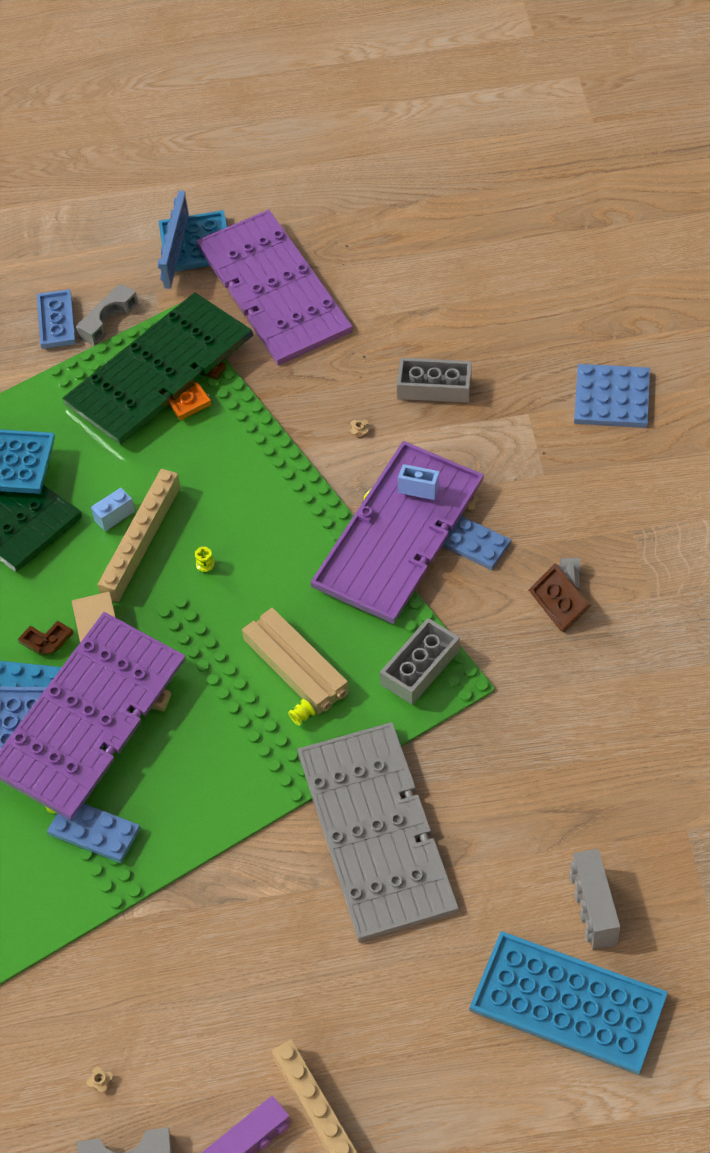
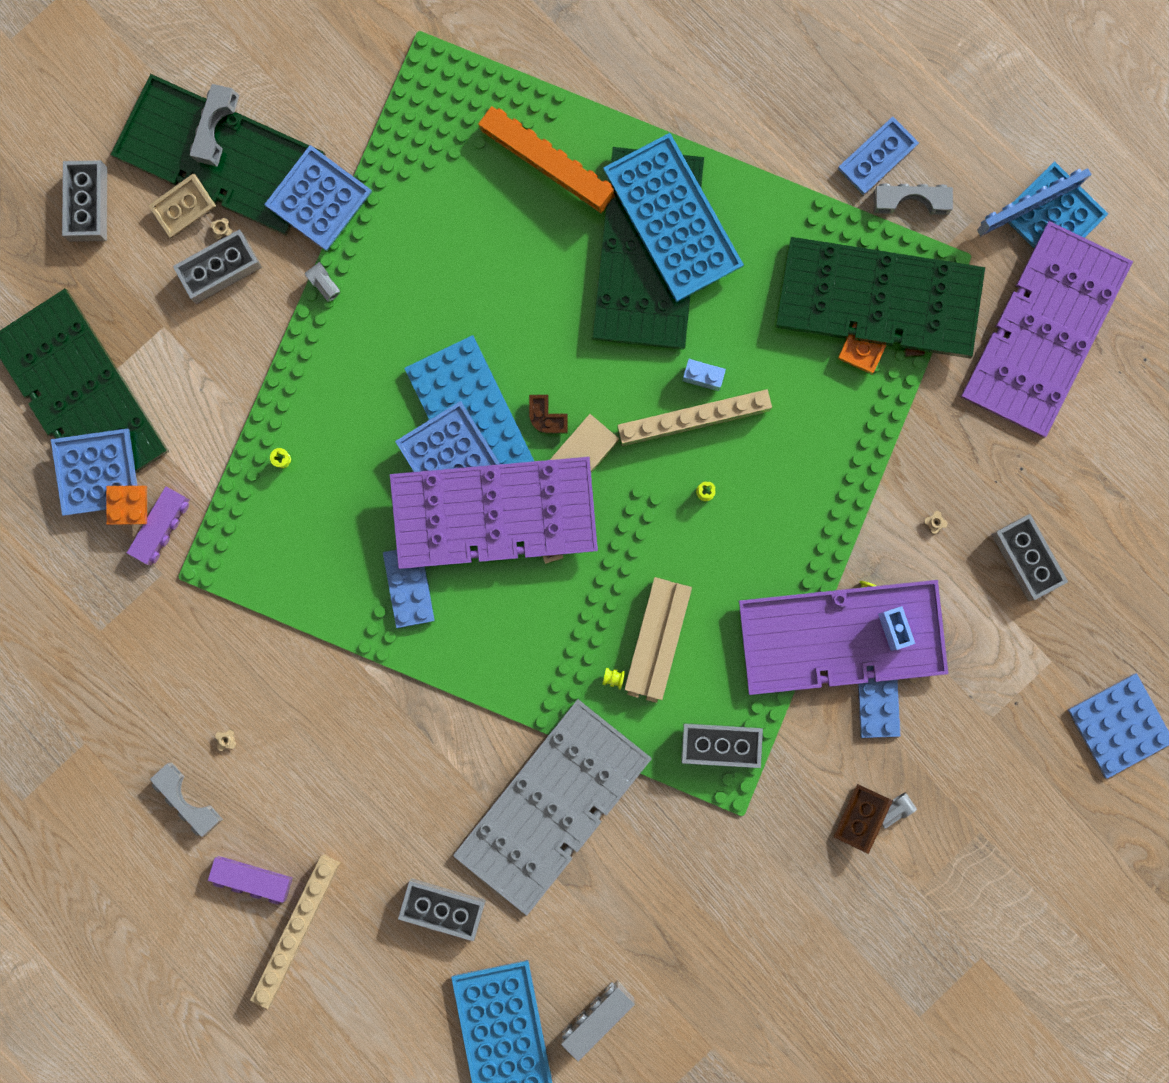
camera: 55 degrees right, 30 degrees up
(400, 974) = (442, 909): none -> light grey brick

